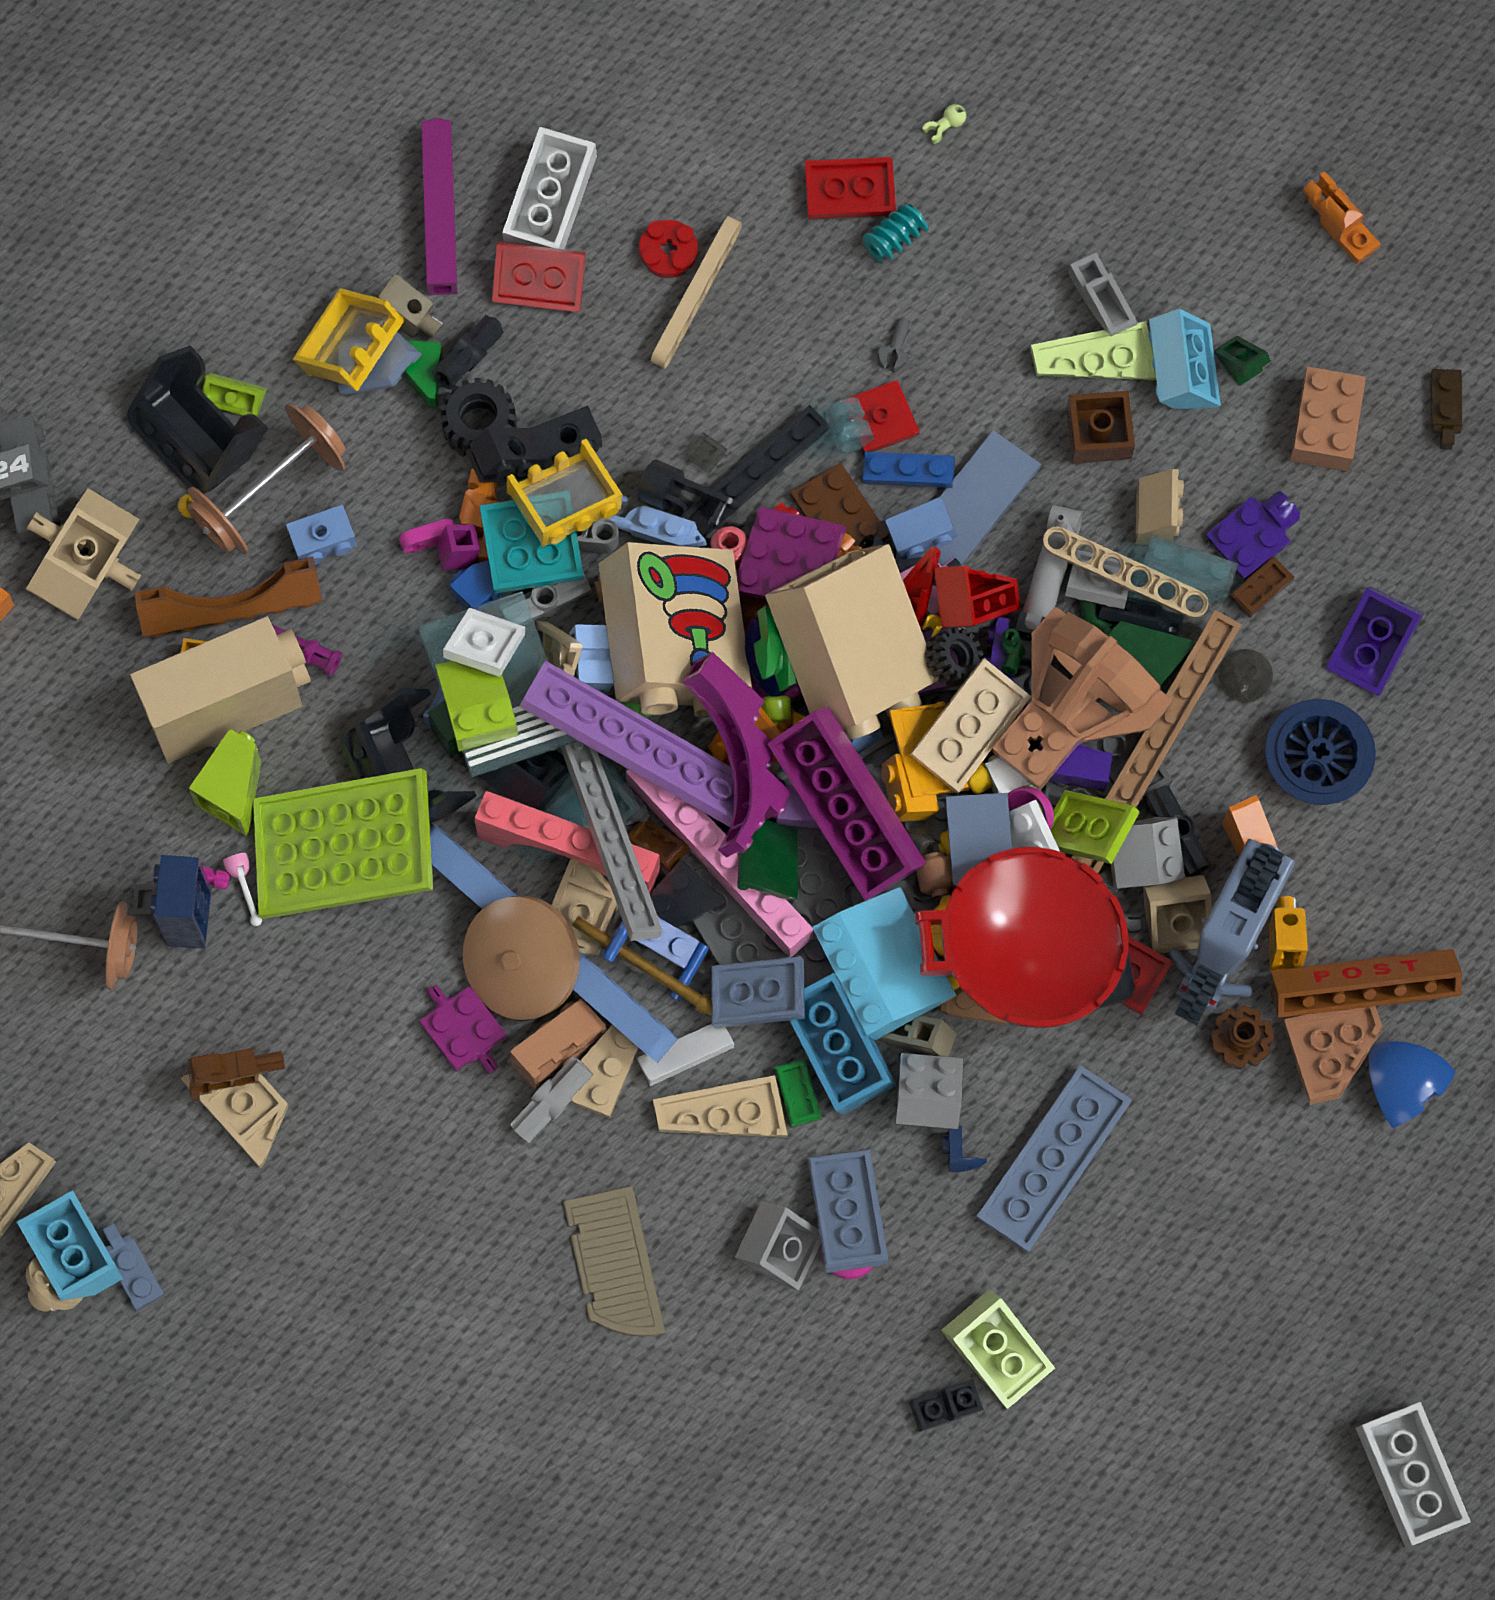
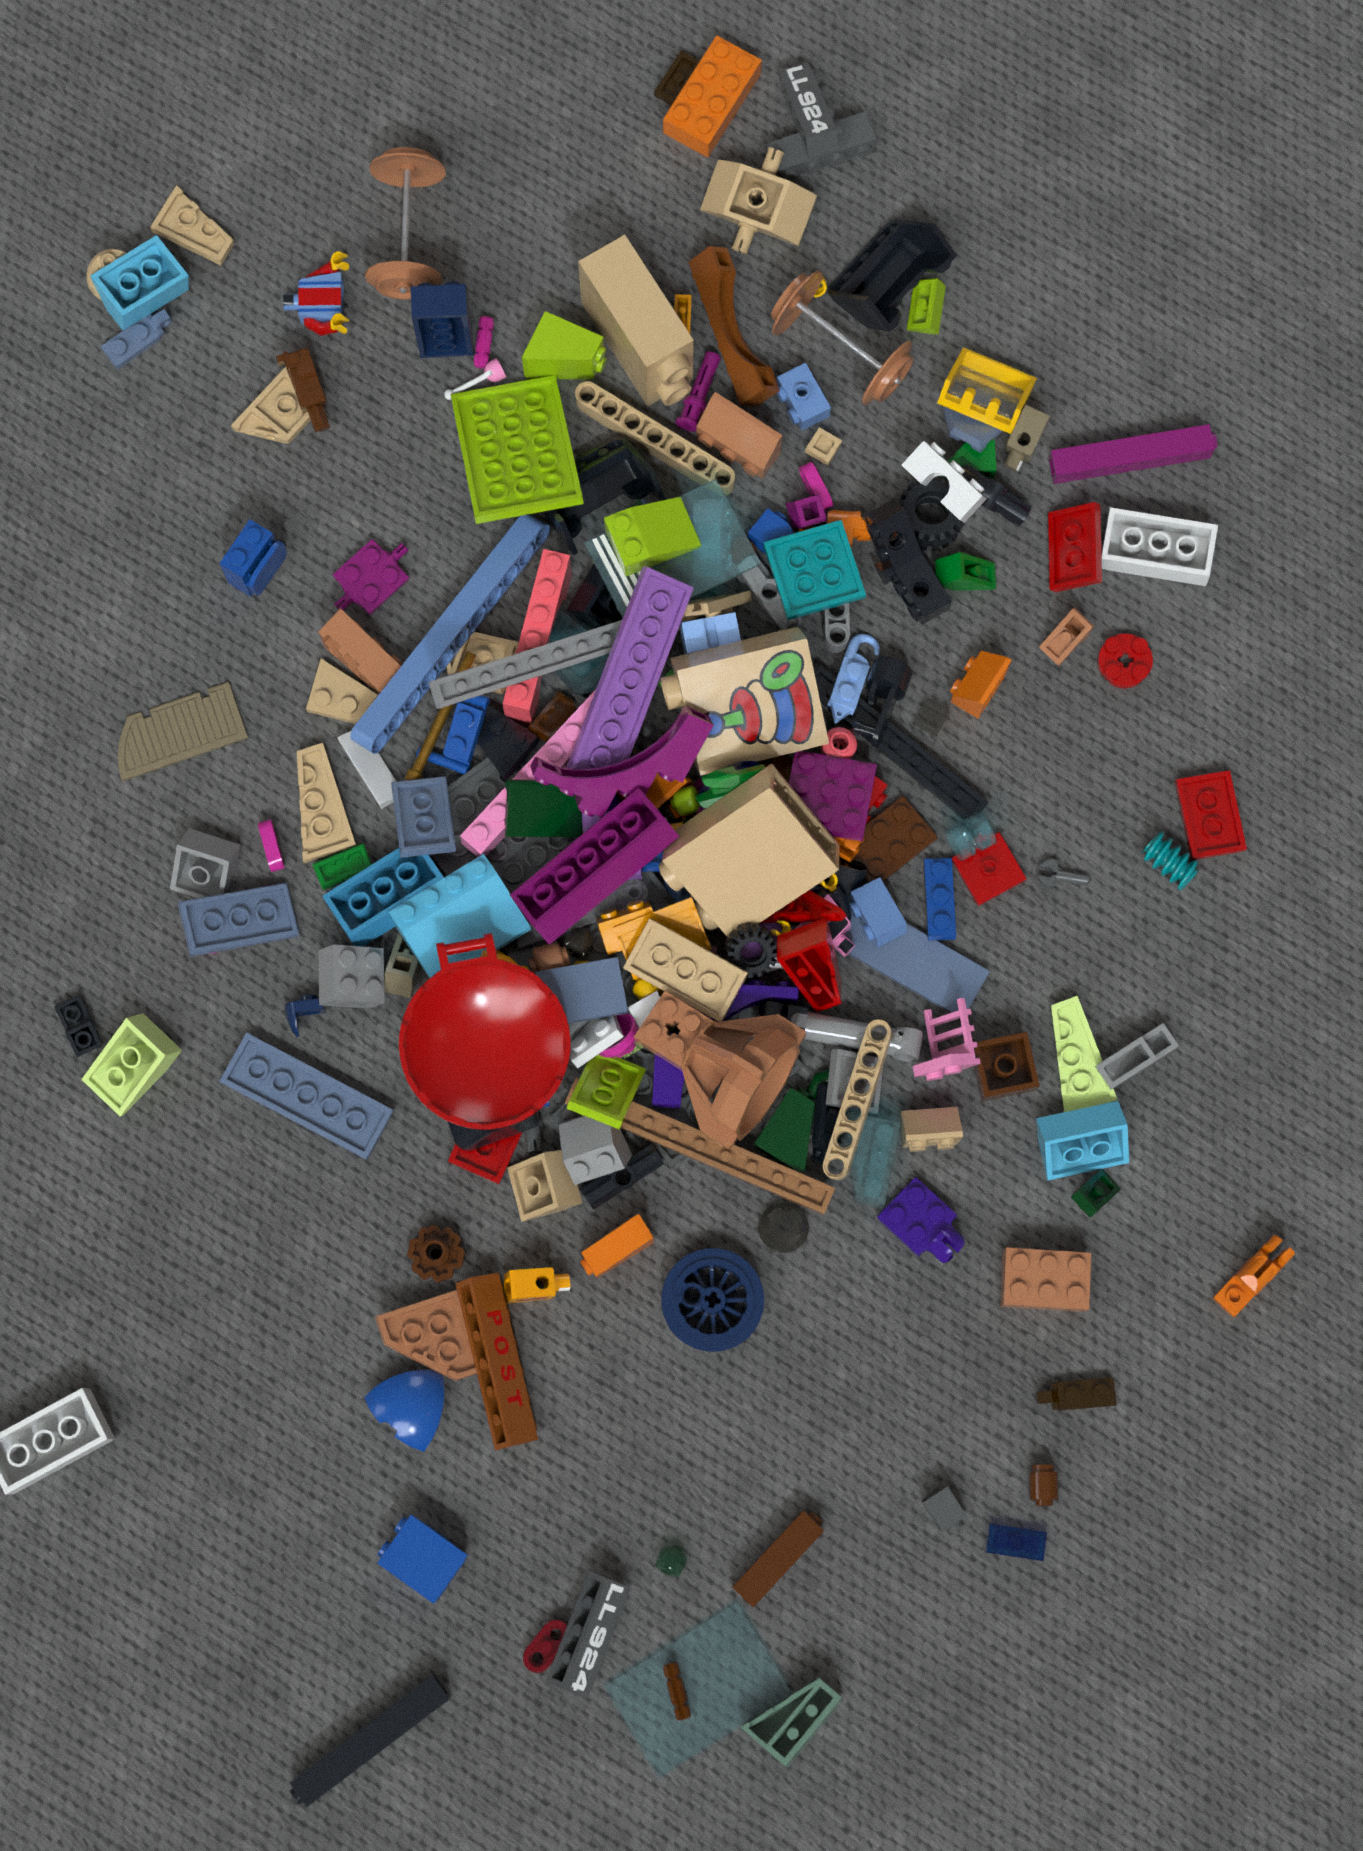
camera: 85 degrees right, 5 degrees up
(121, 1048) = (321, 298): none -> torso
(341, 712) = (647, 428): none -> tan beam
(360, 606) = (739, 436): none -> nougat slope
(381, 522) = (823, 446): none -> tan plate
(432, 402) = (928, 463): none -> white arch
(432, 1148) = (253, 559): none -> blue brick
(484, 642) = (702, 532): white plate -> none
(521, 957) = (432, 612): medium nougat dish -> none
(549, 393) = (965, 572): none -> green slope
(551, 1099) = (312, 656): light grey piece -> none
(566, 495) = (857, 589): window -> none
(637, 298) = (1067, 636): none -> nougat slope
(677, 392) = (980, 682): none -> orange slope
(696, 292) = (1085, 689): tan beam -> none
(764, 1169) = (271, 845): none -> dark pink beam
(950, 118) = (1296, 899): yellowish green arm -> none
(1013, 649) = (764, 1004): dark green arm -> none
(1089, 477) = (953, 1059): none -> bright pink plate
(1232, 929) = (519, 1224): sand blue piece -> none
(1261, 587) = (870, 1234): reddish brown plate -> none
(1374, 640) = (833, 1344): dark purple slope -> none

